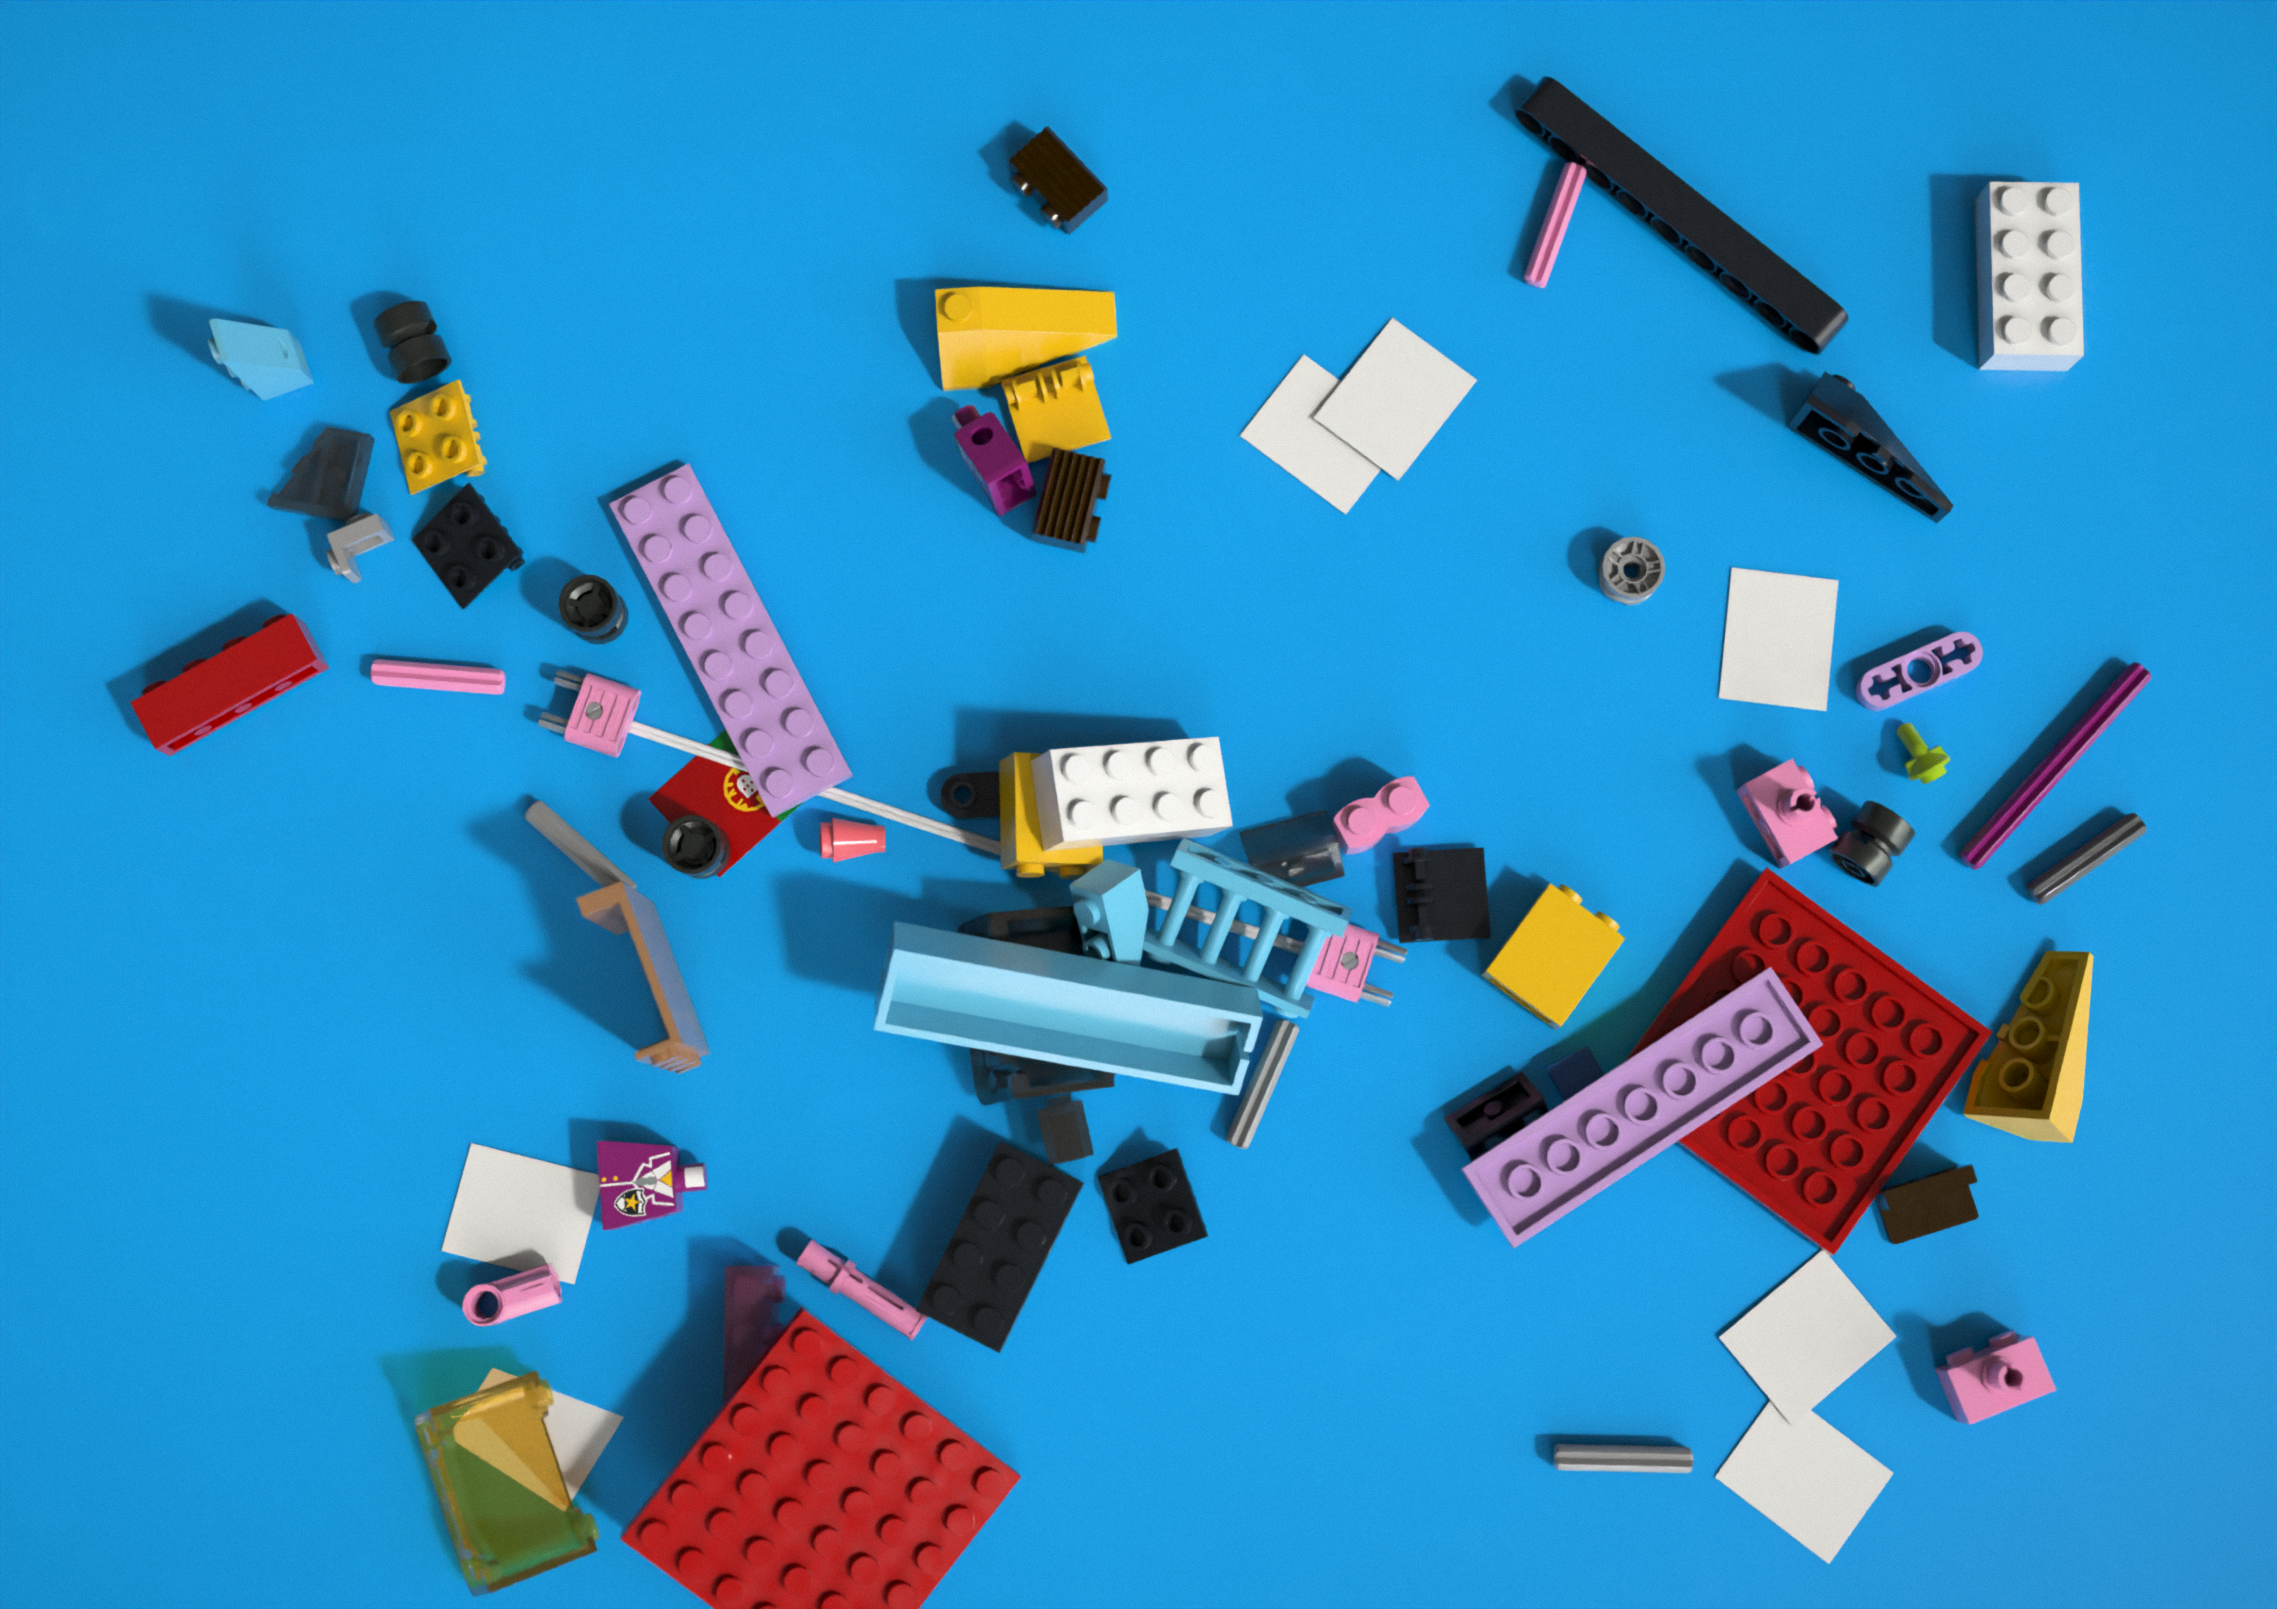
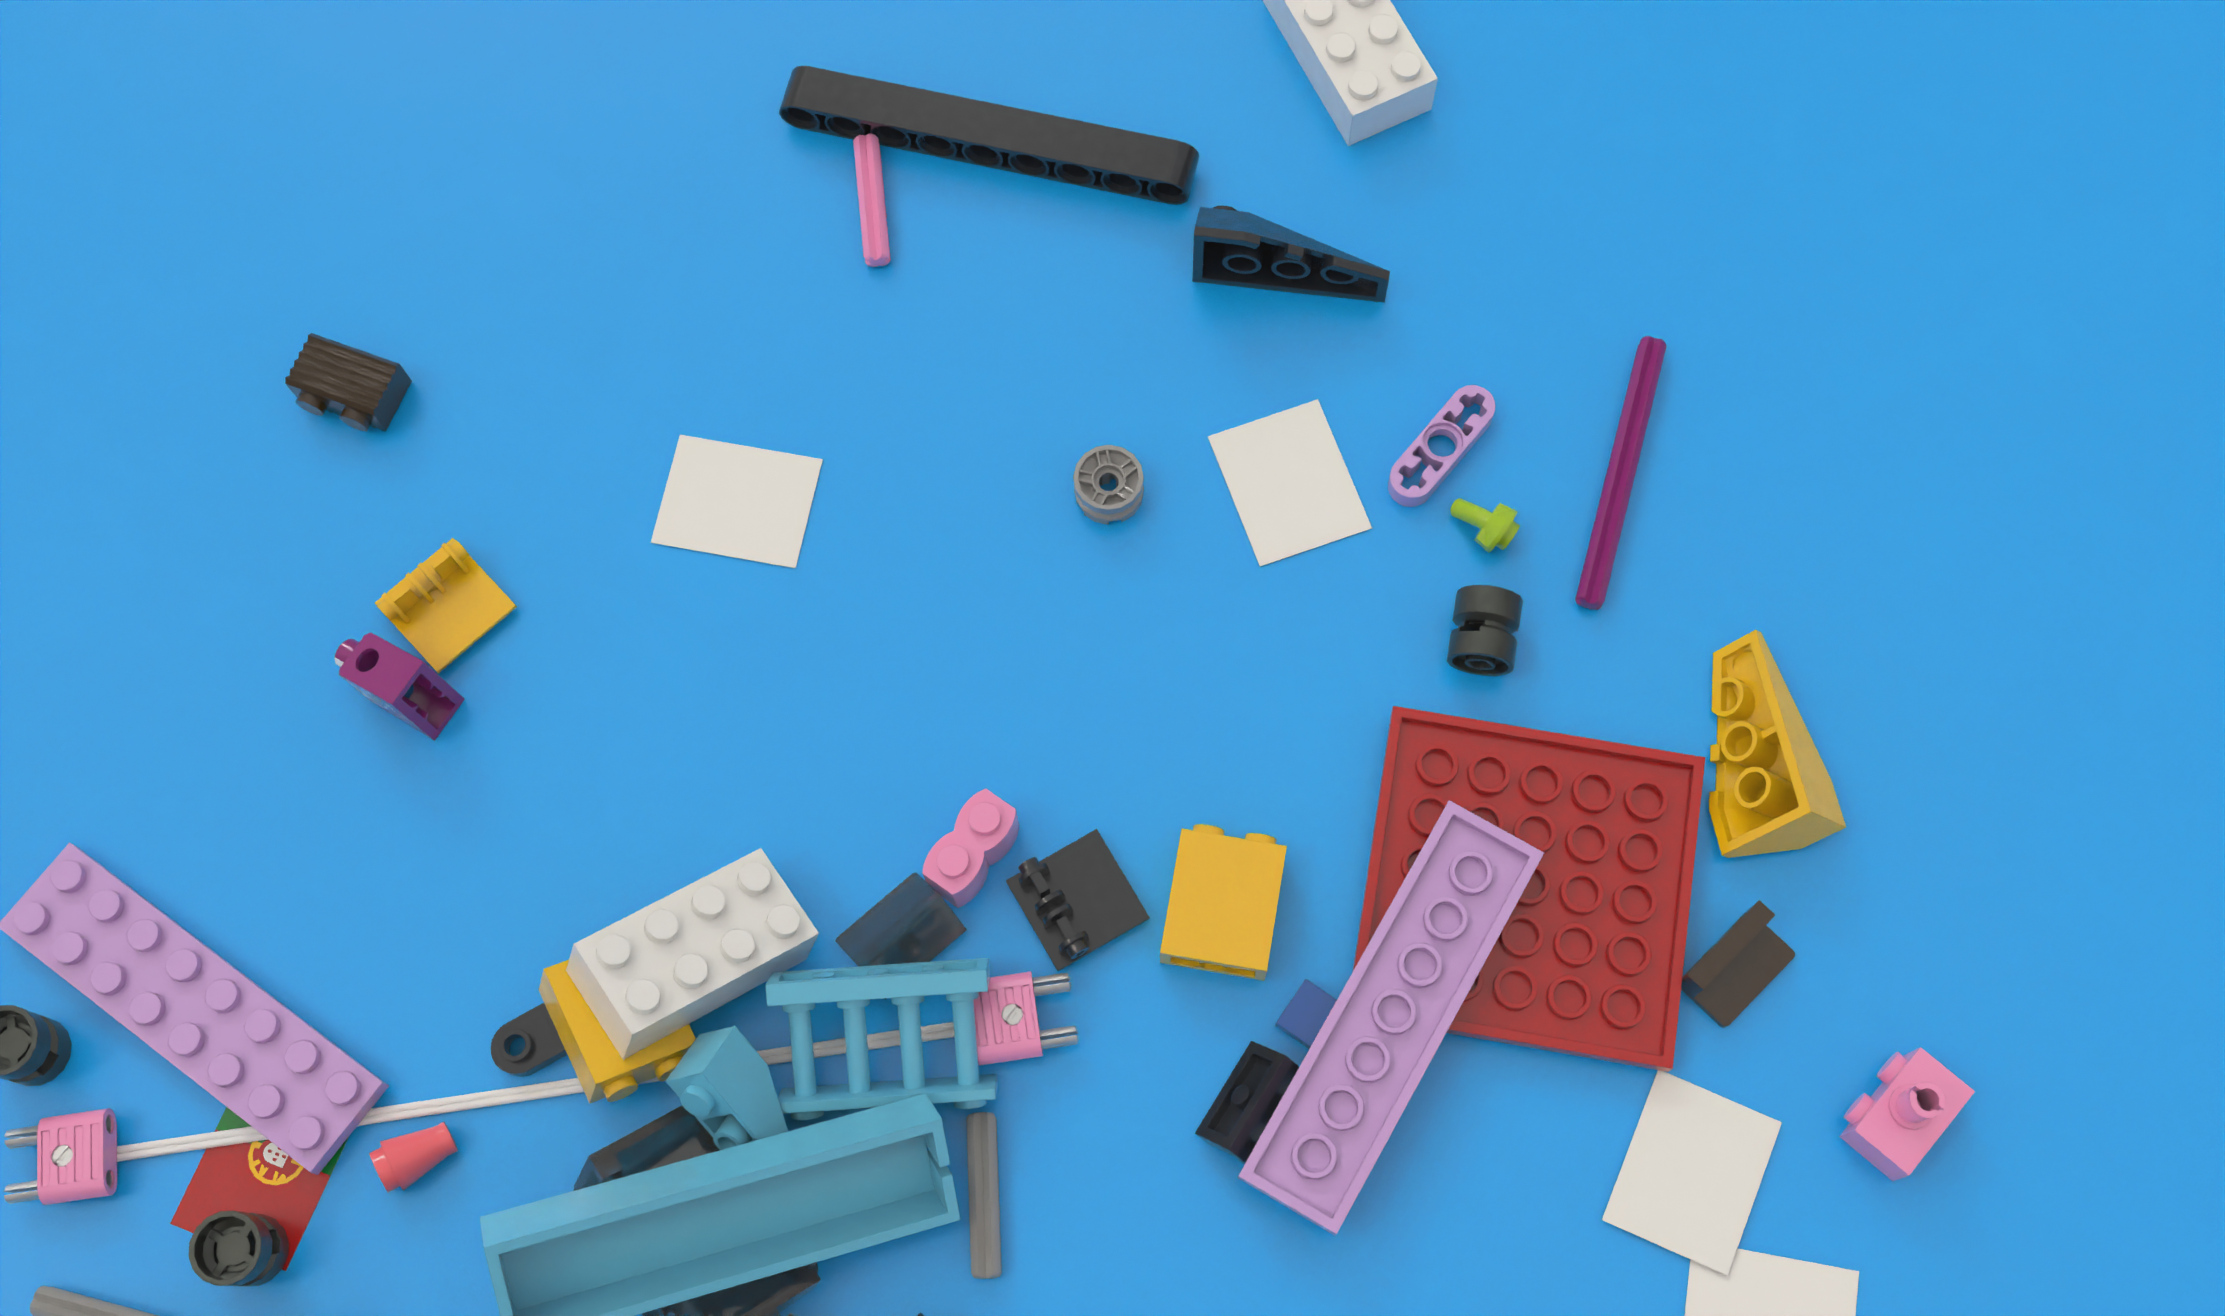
camera: 25 degrees left, 10 degrees down
(1007, 331) = (355, 551): yellow wedge -> none
(1070, 501) = (499, 686): dark brown brick -> none
(1395, 399) = (792, 434): white sticker -> none
(1788, 813) = (1386, 642): bright pink brick -> none
(2086, 858) = (1700, 545): dark grey axle -> none

